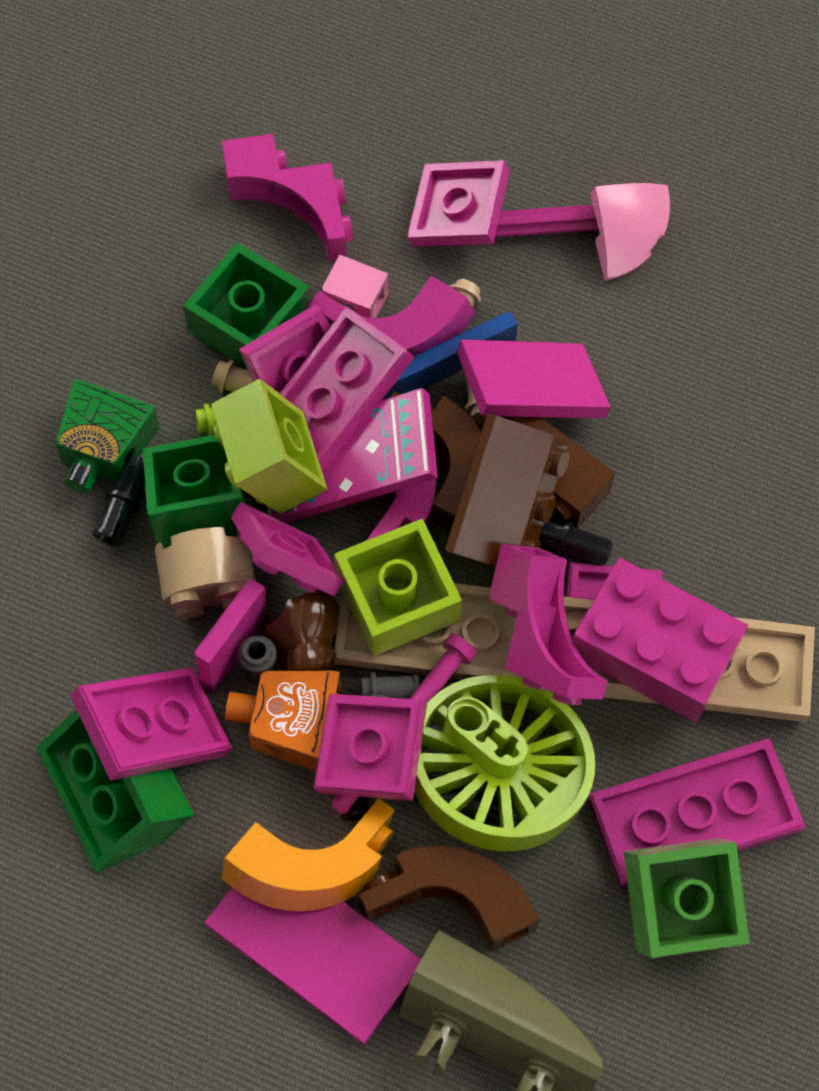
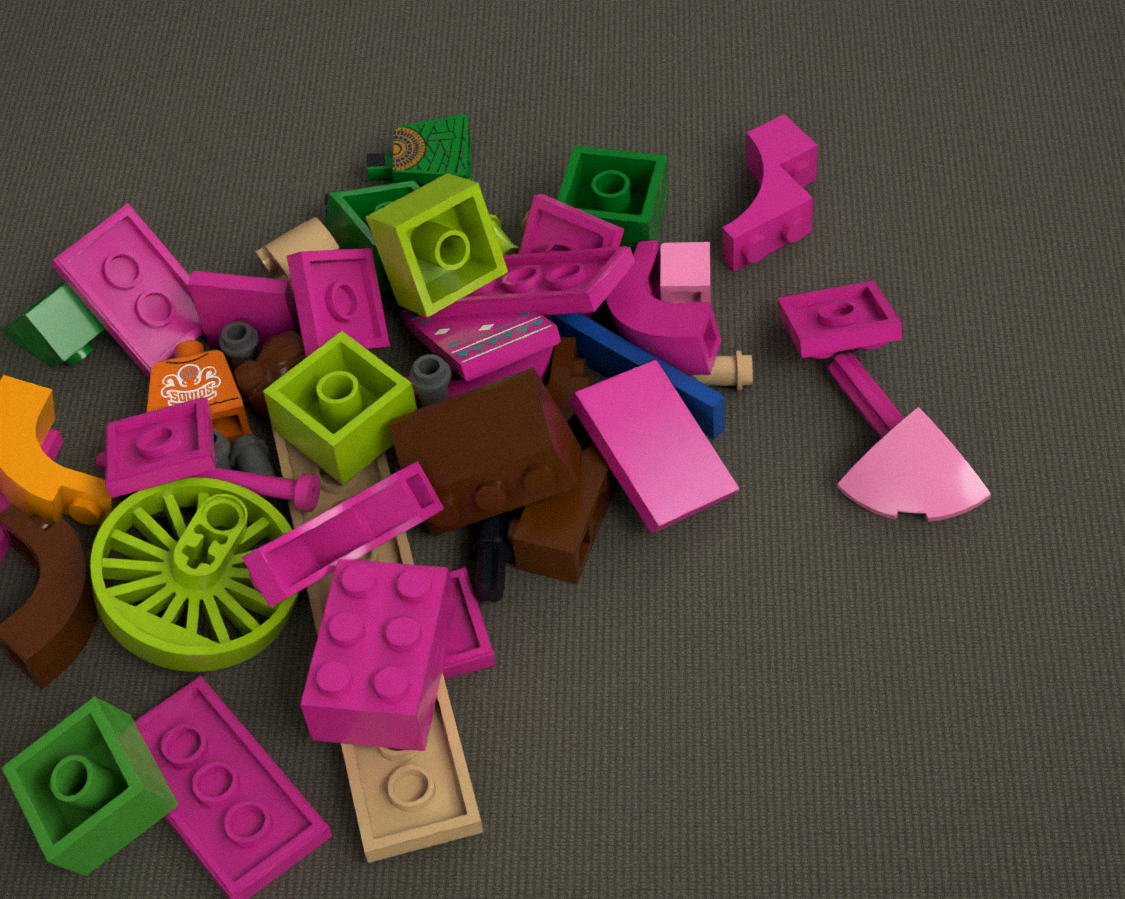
camera: 75 degrees right, 15 degrees down
(416, 495) = (431, 379): none -> dark grey pin

